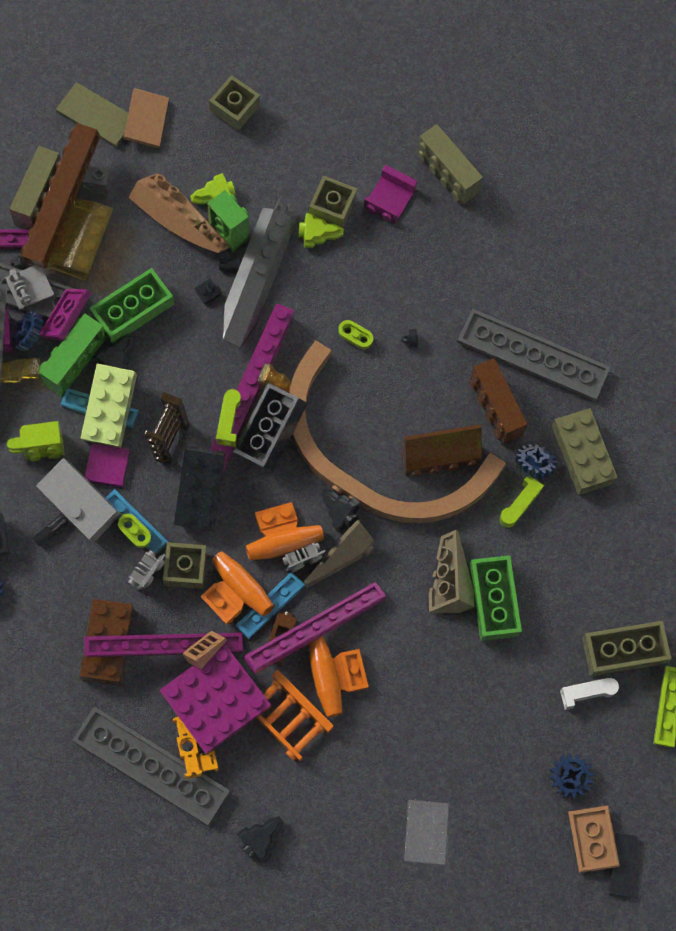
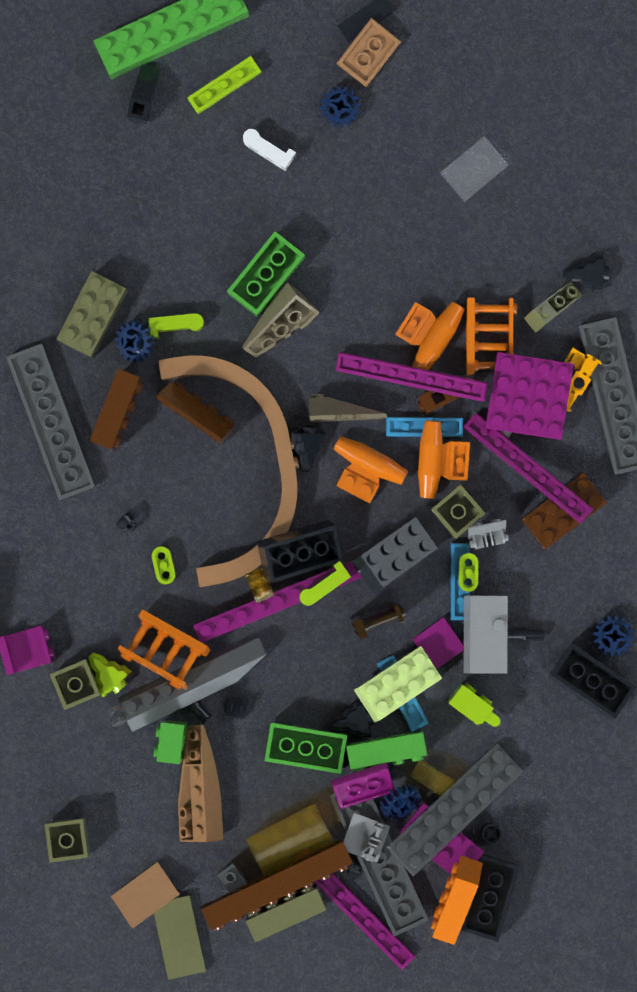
camera: 130 degrees left, 15 degrees up
(199, 658) = (505, 429): medium nougat slope -> none
(212, 189) = (153, 780): lime rock -> none
(263, 787) = (553, 306): none -> olive slope
(292, 293) = (164, 630): none -> orange fence
(312, 551) = (379, 433): light grey hinge -> none
(626, 648) = (212, 150): olive brick -> none

